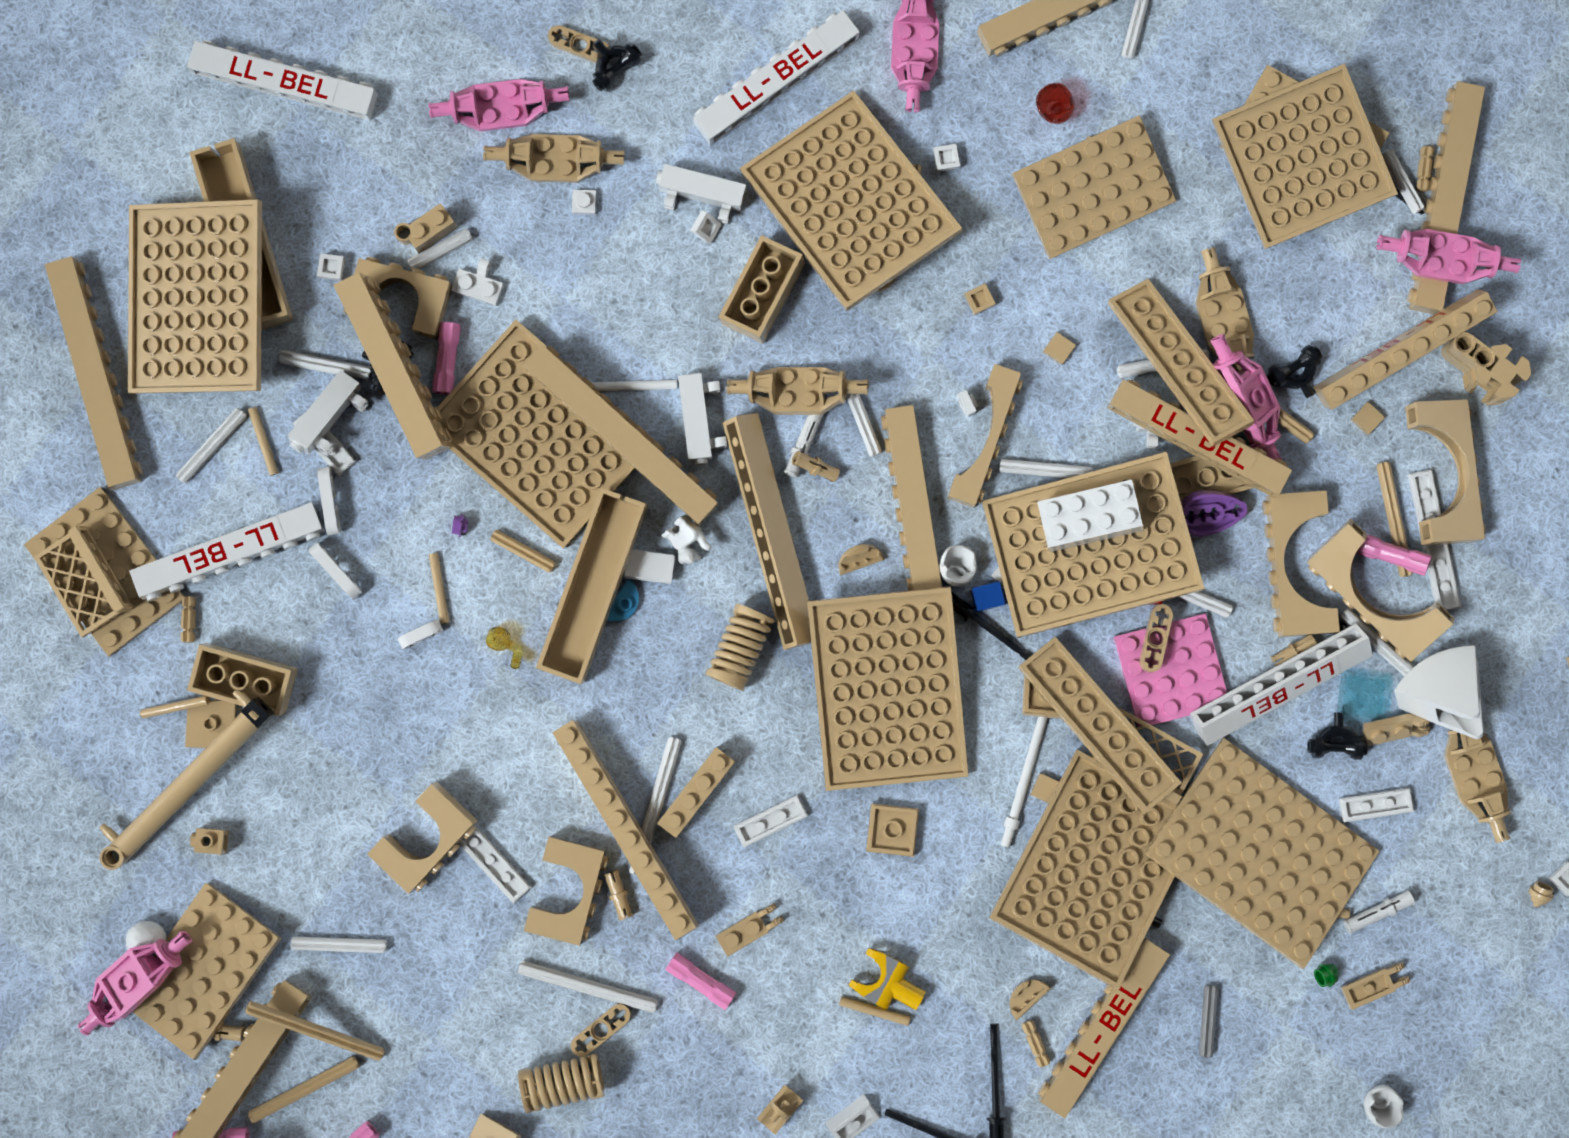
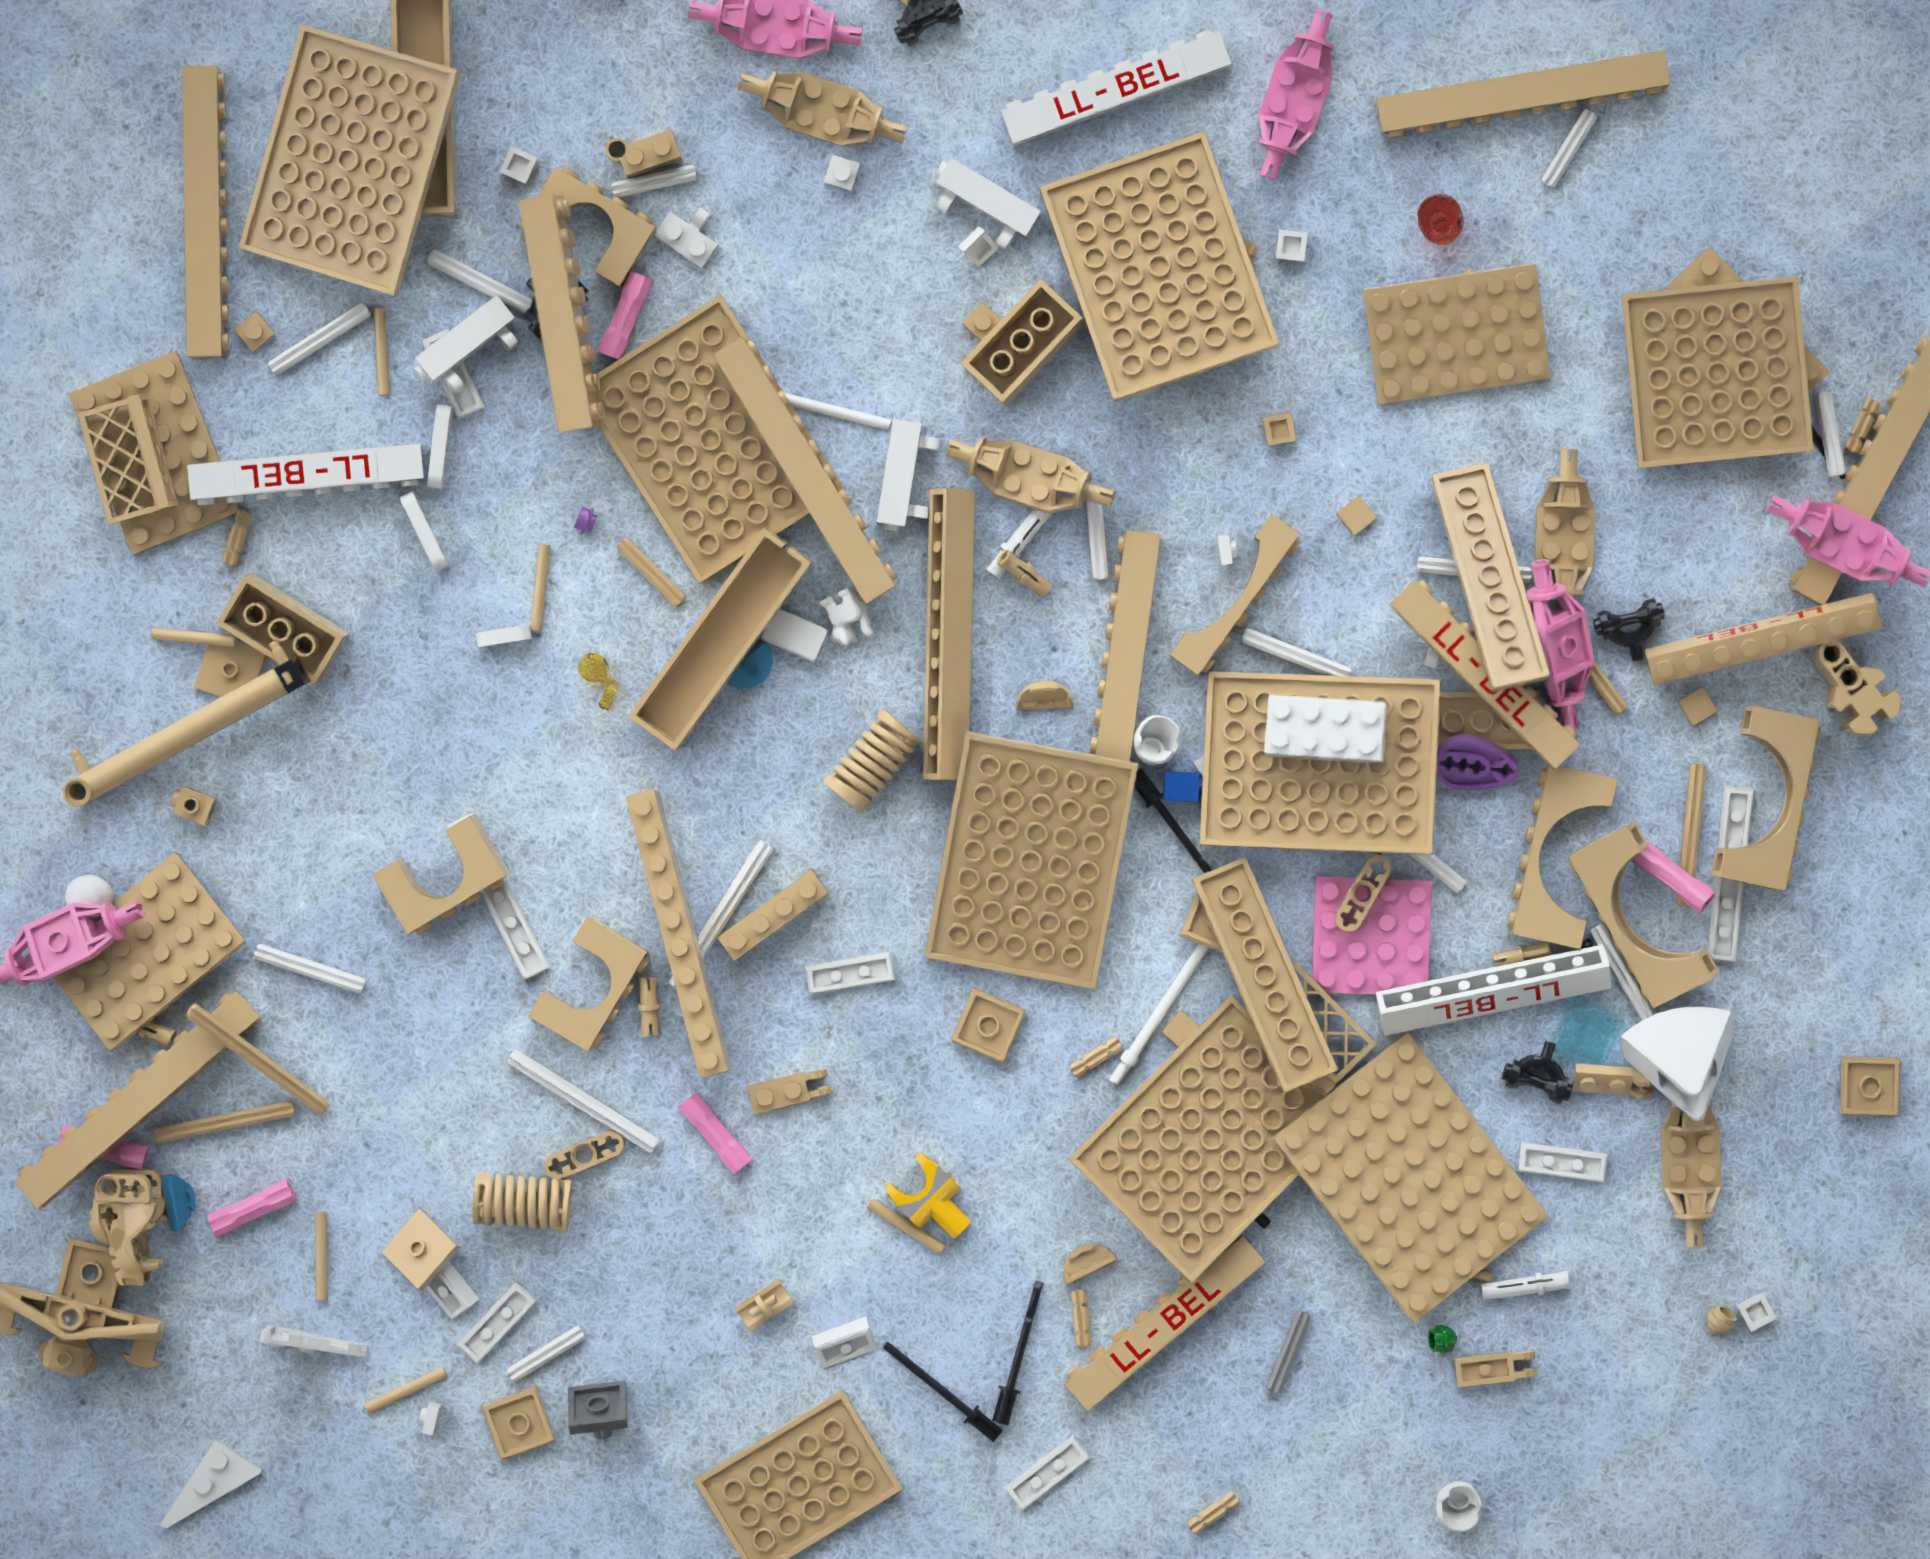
camera: 20 degrees right, 5 degrees up
(159, 454) = (254, 331): none -> tan plate
(724, 283) = (981, 321): none -> tan plate
(984, 830) = (1096, 1056): none -> tan axle

